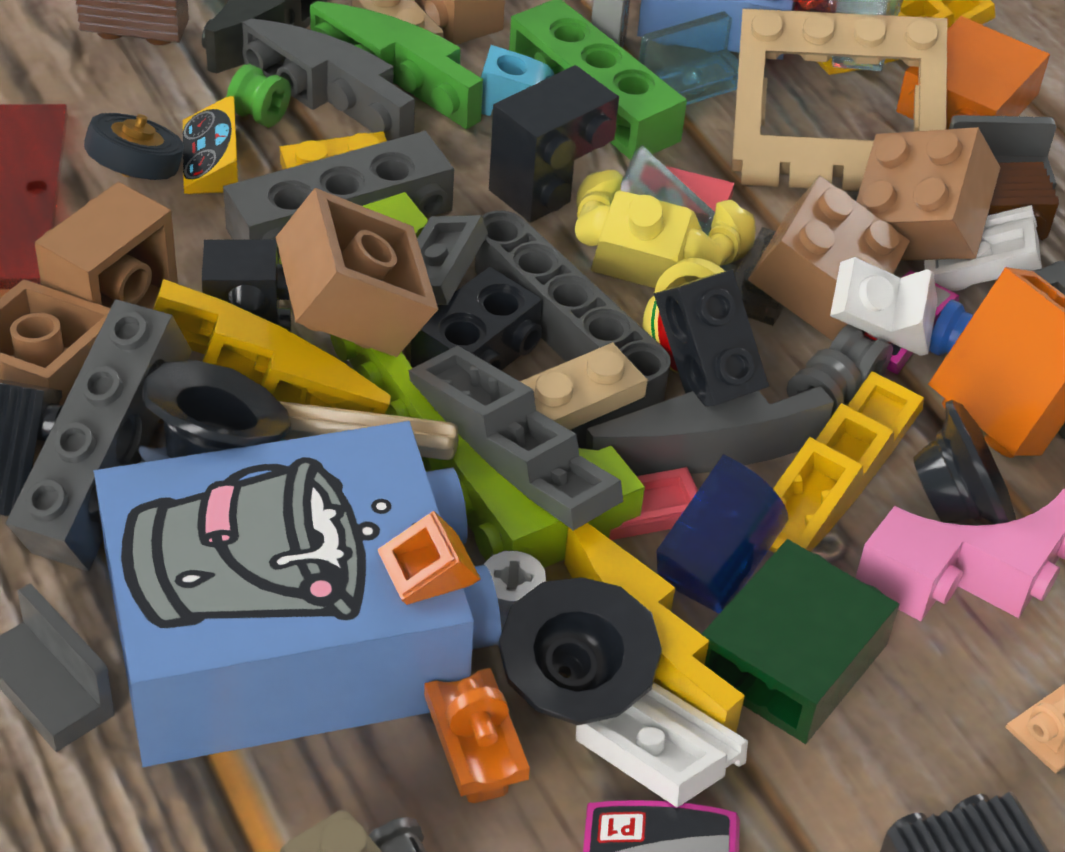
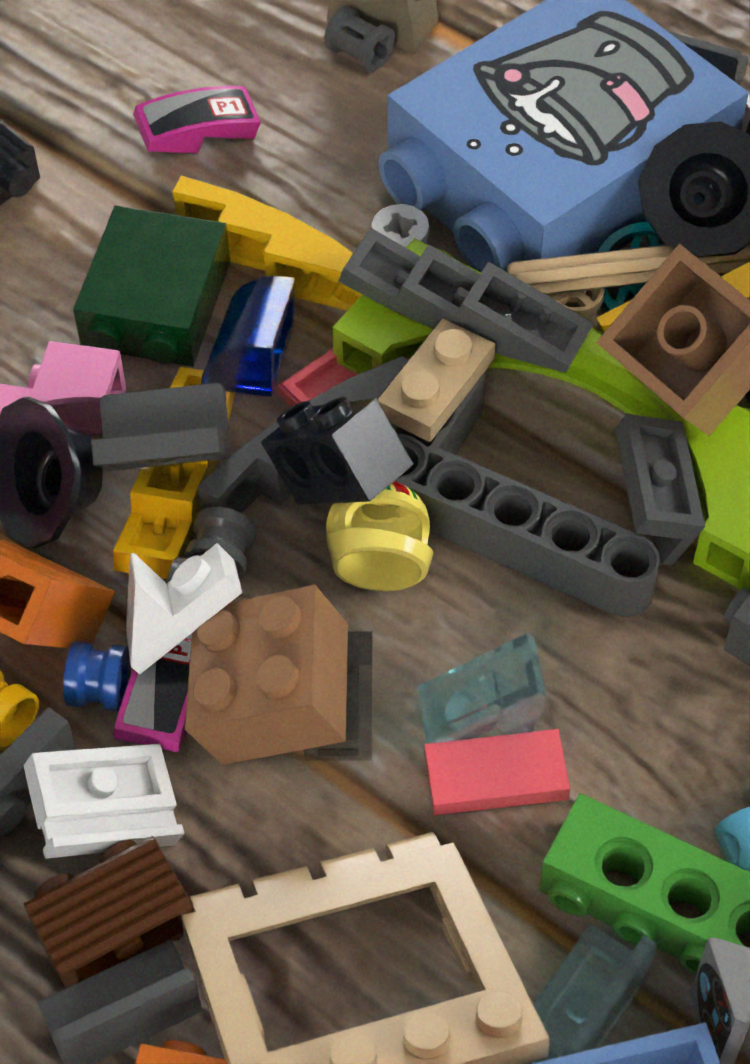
camera: 160 degrees right, 10 degrees up
(428, 560) = (442, 111): orange slope -> none
(477, 735) = (355, 114): orange hips -> none
(485, 317) = (580, 451): black brick -> none
(541, 136) = (654, 688): black brick -> none
(591, 635) = (315, 179): black hat -> none
(647, 236) = (465, 607): light yellow torso -> none
(666, 745) = (226, 159): white plate -> none
(856, 430) = (162, 427): none -> dark grey panel
(932, 189) = (186, 797): medium nougat brick -> none

